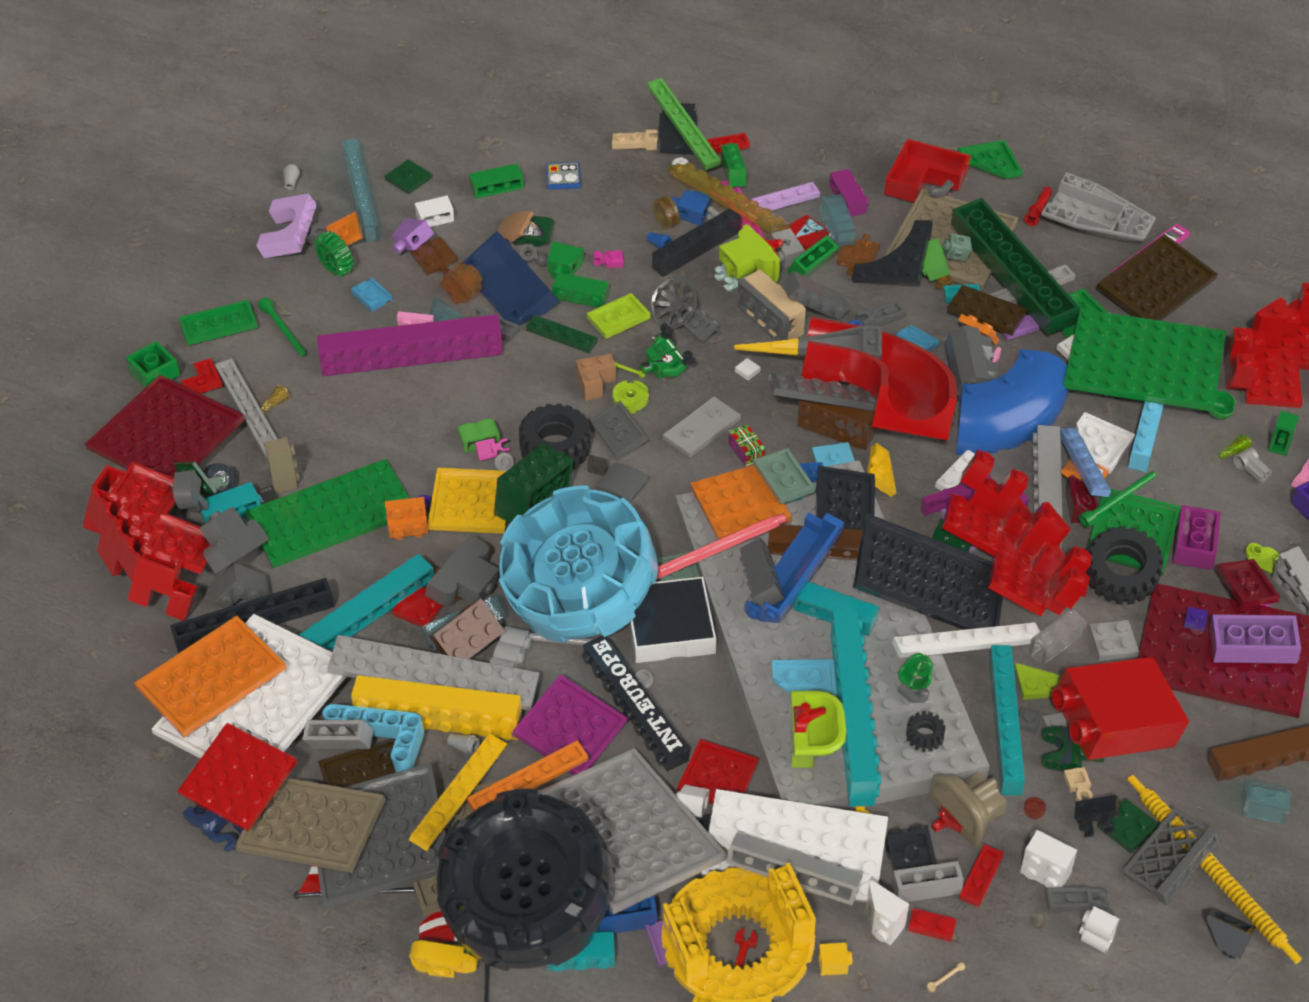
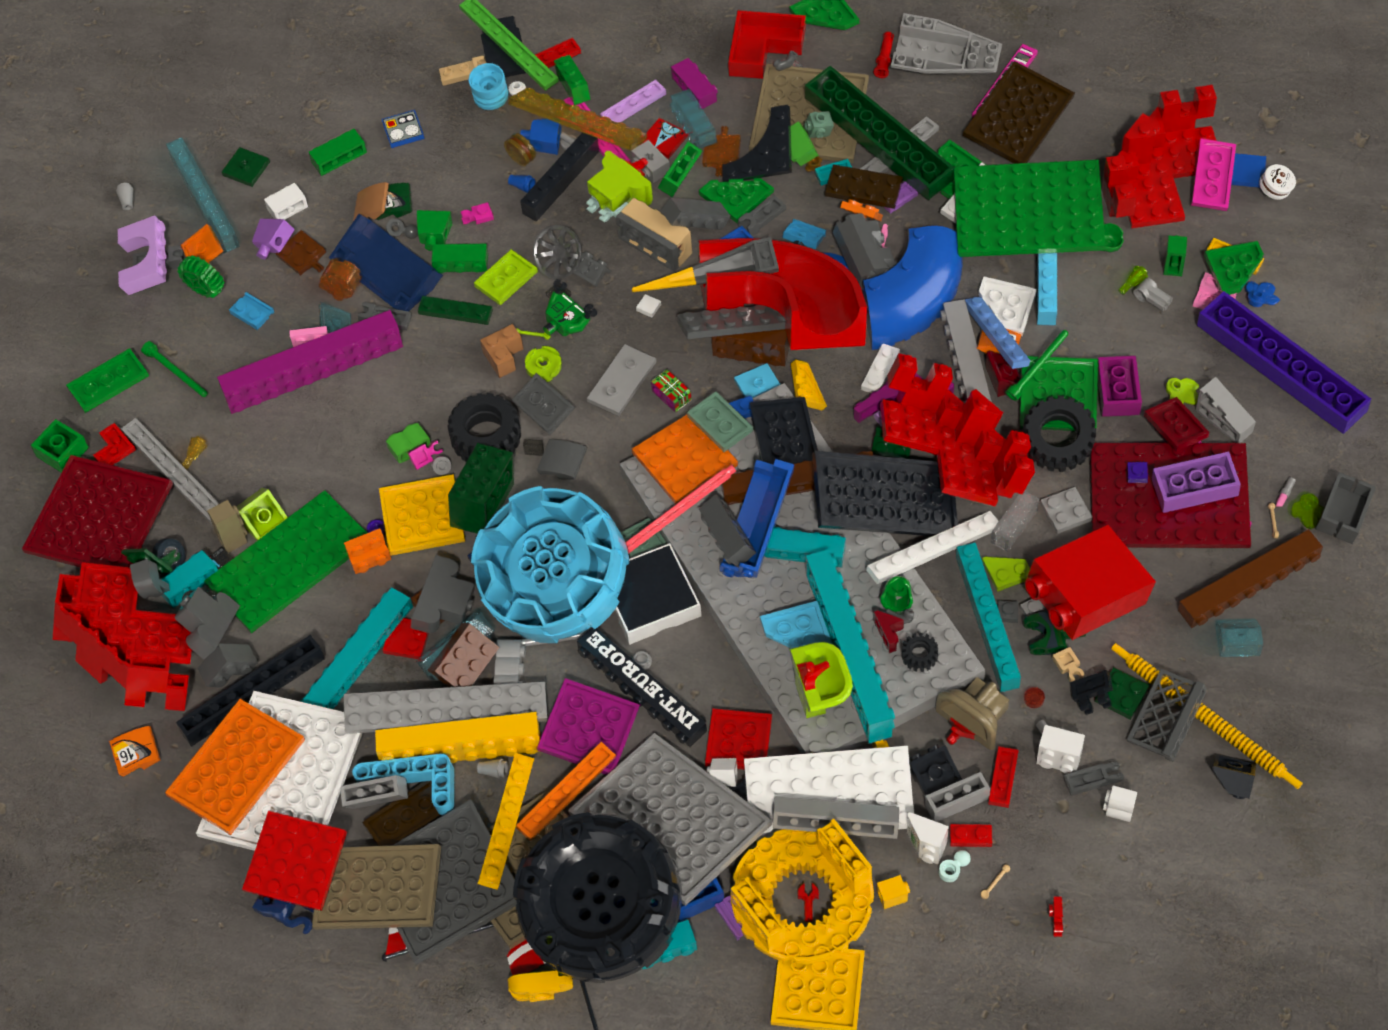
camera: 10 degrees left, 10 degrees up
(123, 644) = (134, 750): none -> orange slope
(317, 464) = (261, 513): none -> lime slope
(653, 154) = (488, 86): none -> medium azure wheel
(862, 293) = (737, 195): none -> green plate
(899, 700) = (887, 627): none -> dark red slope
(915, 944) = (961, 859): none -> light aqua plate

